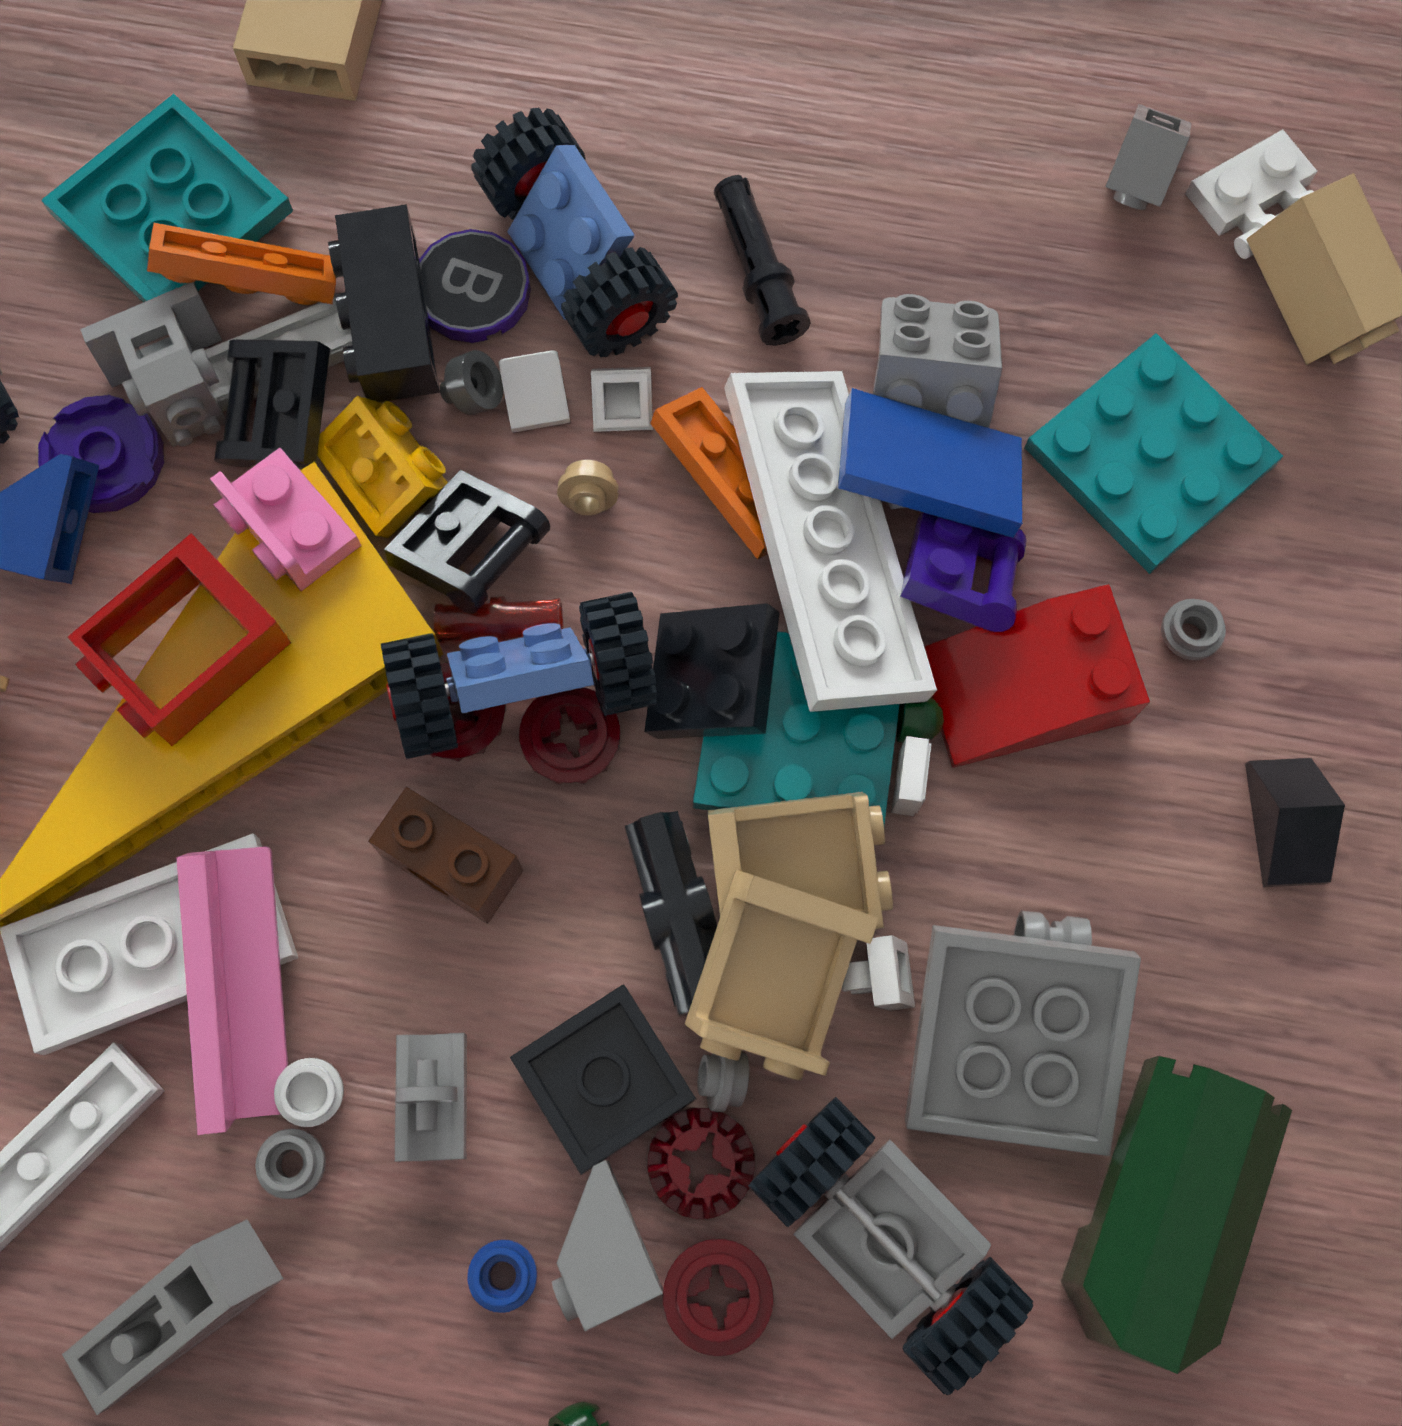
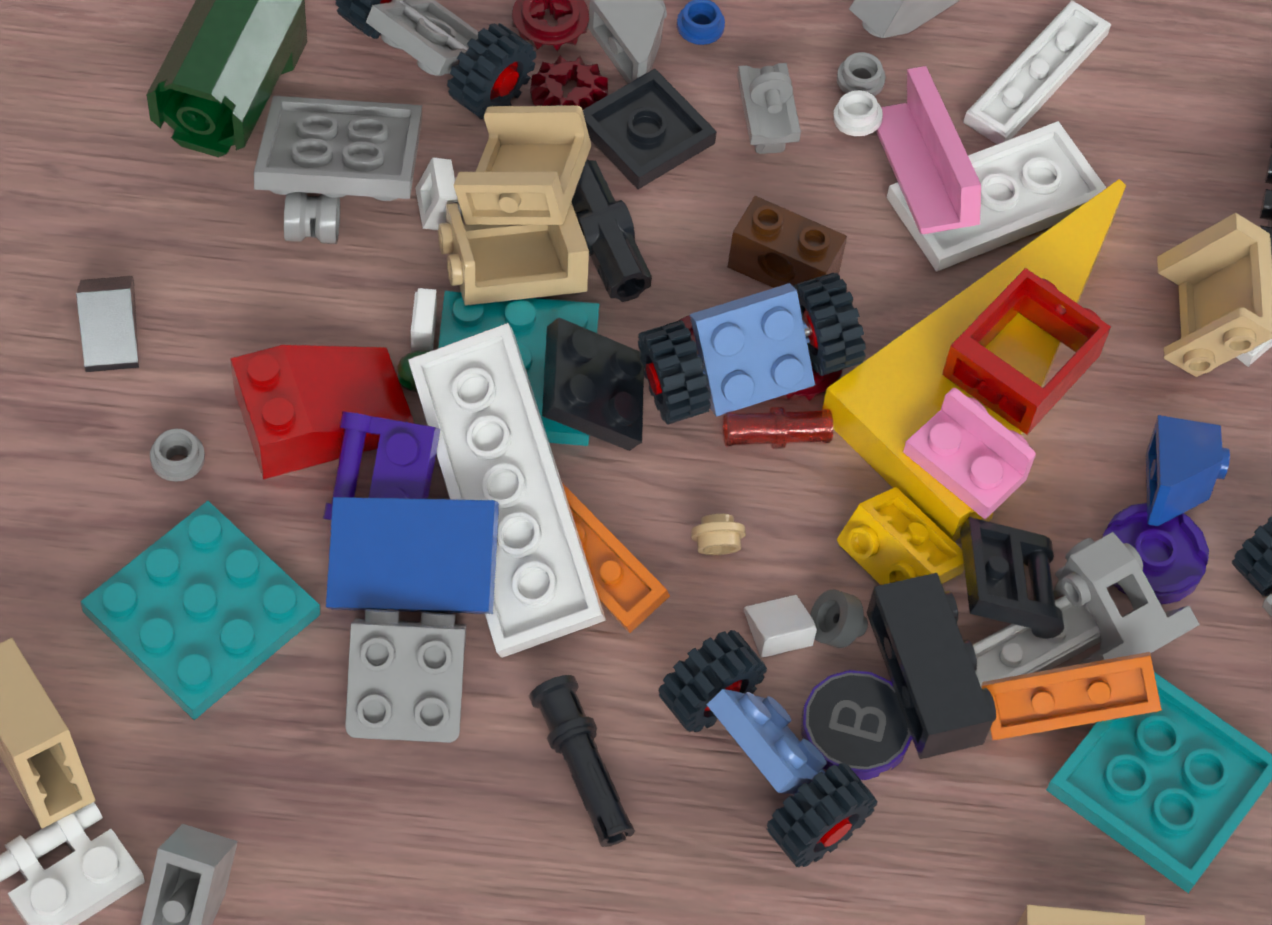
camera: 170 degrees right, 15 degrees down
(453, 528) = (831, 486): black plate -> none
(621, 399) = (694, 623): white slope -> none

